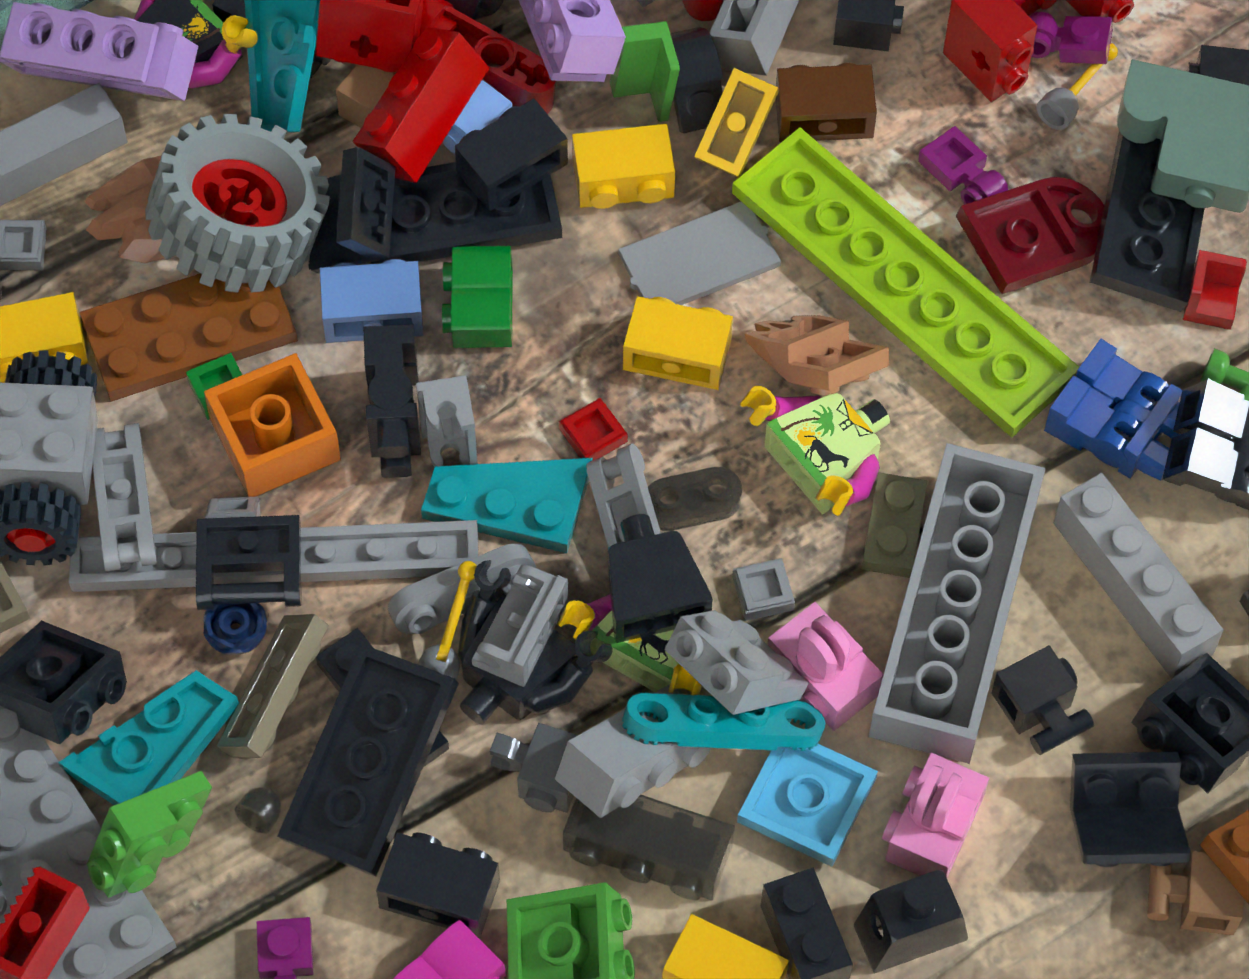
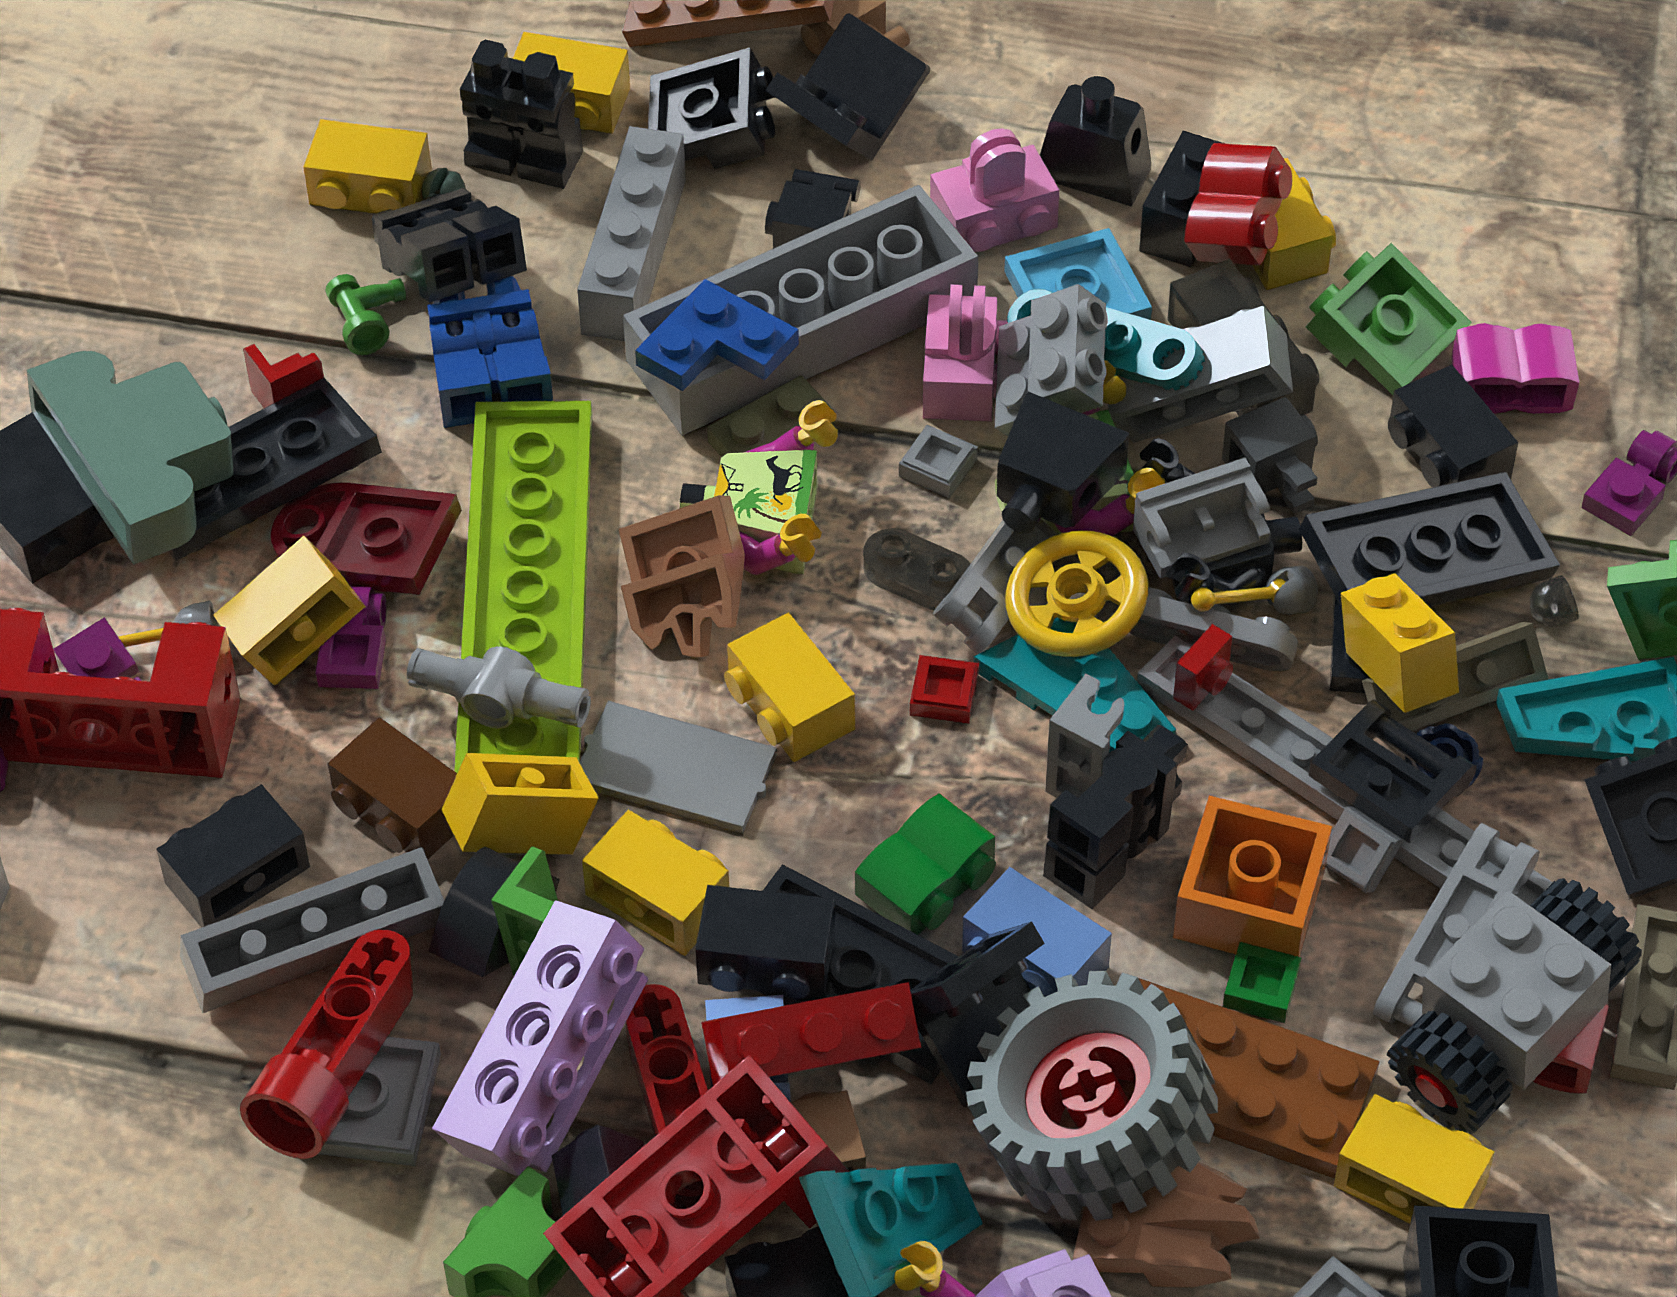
camera: 135 degrees left, 10 degrees down
(308, 628) = (1400, 642): none -> yellow brick
(423, 531) = (1203, 668): none -> red plate
(560, 513) = (1090, 633): none -> yellow plate
(743, 915) = (1238, 204): none -> red brick
(830, 180) = (498, 687): none -> light grey pin
(973, 499) = (712, 325): none -> blue plate
(1009, 134) = (289, 611): none -> yellow brick

